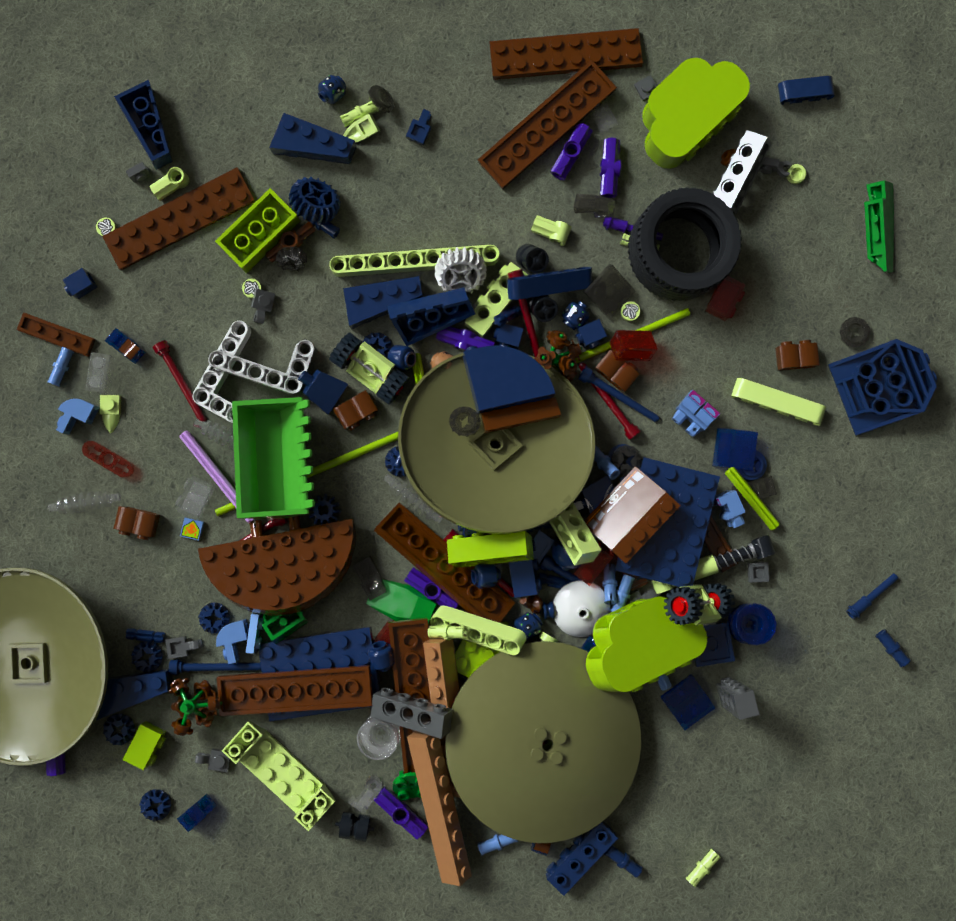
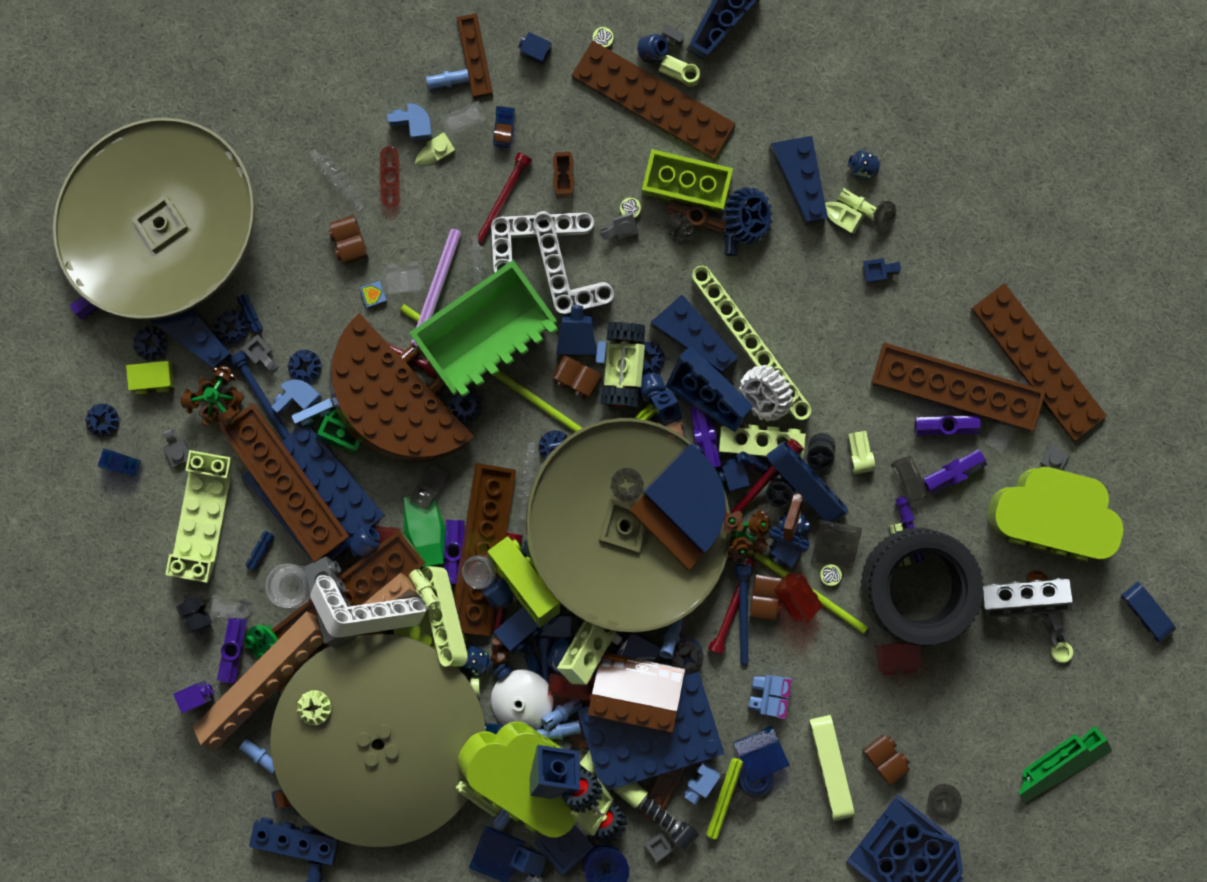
camera: 65 degrees right, 0 degrees up
(137, 193) = (652, 48): none -> dark blue head
(189, 321) = (563, 179): none -> reddish brown brick
(336, 742) = (259, 550): none -> dark blue axle
(349, 380) = (600, 353): none -> medium blue tile
(418, 867) = (194, 696): none -> dark purple brick
(423, 355) = (666, 407): none -> dark blue brick
(441, 695) = (366, 618): none -> white beam
(460, 580) = (478, 572): none -> clear piece
(483, 770) = (321, 714): none -> yellowish green gear
(569, 309) = (793, 517): none -> reddish brown tile
(584, 324) = (802, 545): none -> dark blue axle
(624, 697) = (468, 792): none -> yellowish green axle
(656, 618) = (554, 772): none -> dark blue slope
(708, 680) = (528, 860): none -> dark blue brick

